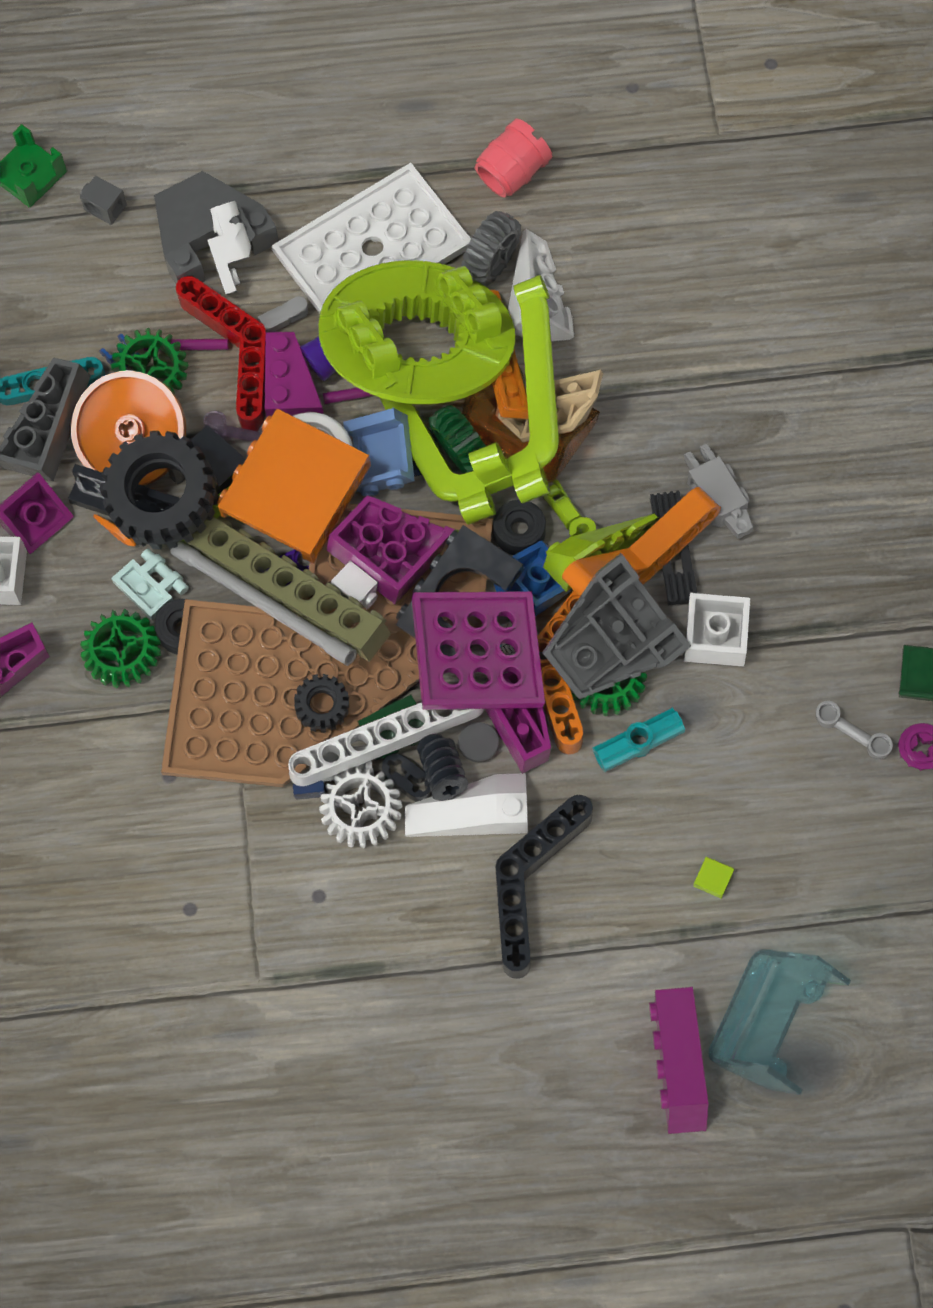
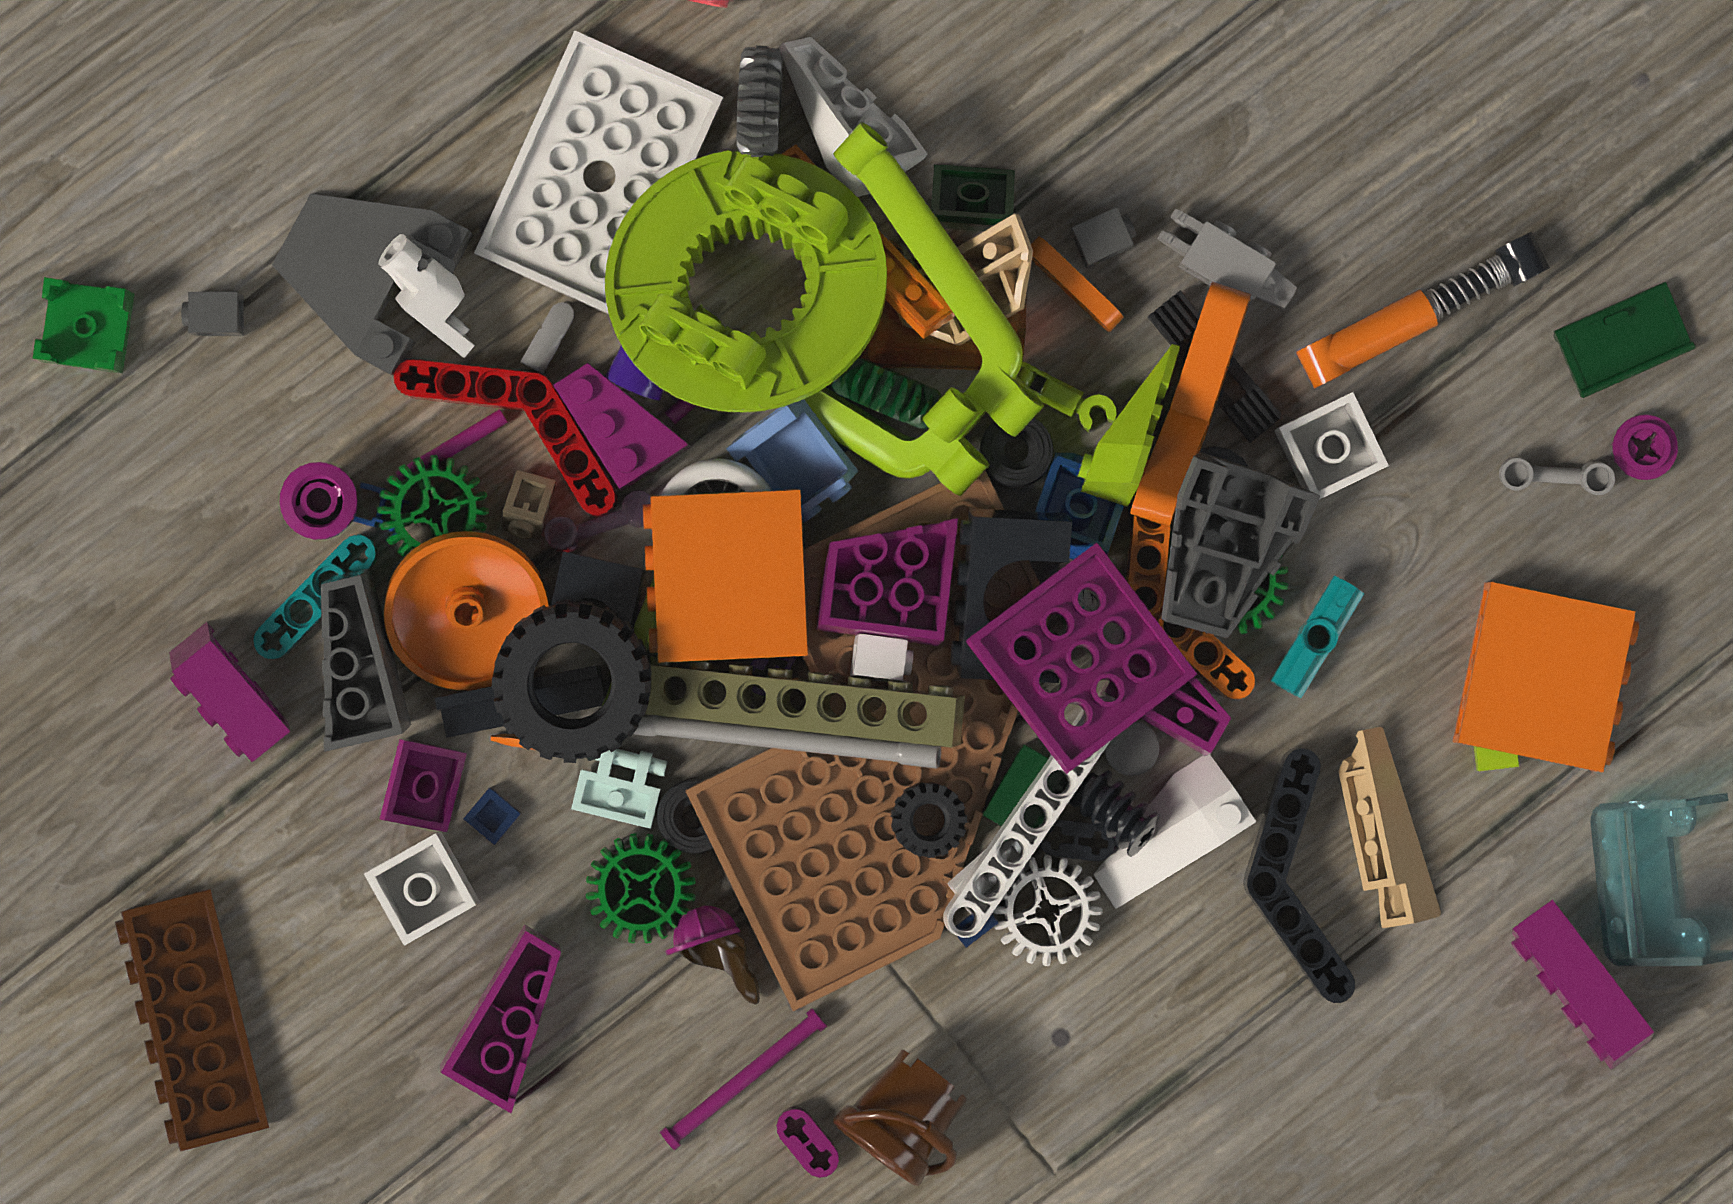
camera: 35 degrees left, 20 degrees up
(38, 809) = (743, 1079): none -> magenta bar
(63, 559) = (492, 816): none -> dark blue tile
(88, 323) = (318, 500): none -> magenta piece
(109, 863) = (815, 1136): none -> magenta beam
(140, 703) = (711, 940): none -> piece
(183, 875) = (904, 1119): none -> reddish brown piece
(206, 396) = (527, 505): none -> dark tan bracket
(575, 362) = (972, 196): none -> dark green slope
(608, 889) = (1385, 834): none -> tan wedge
(615, 453) = (1075, 285): none -> orange beam
(650, 436) = (1103, 236): none -> dark grey brick
(752, 580) = (1418, 312): none -> piece
(774, 847) = (1546, 677): none -> orange panel

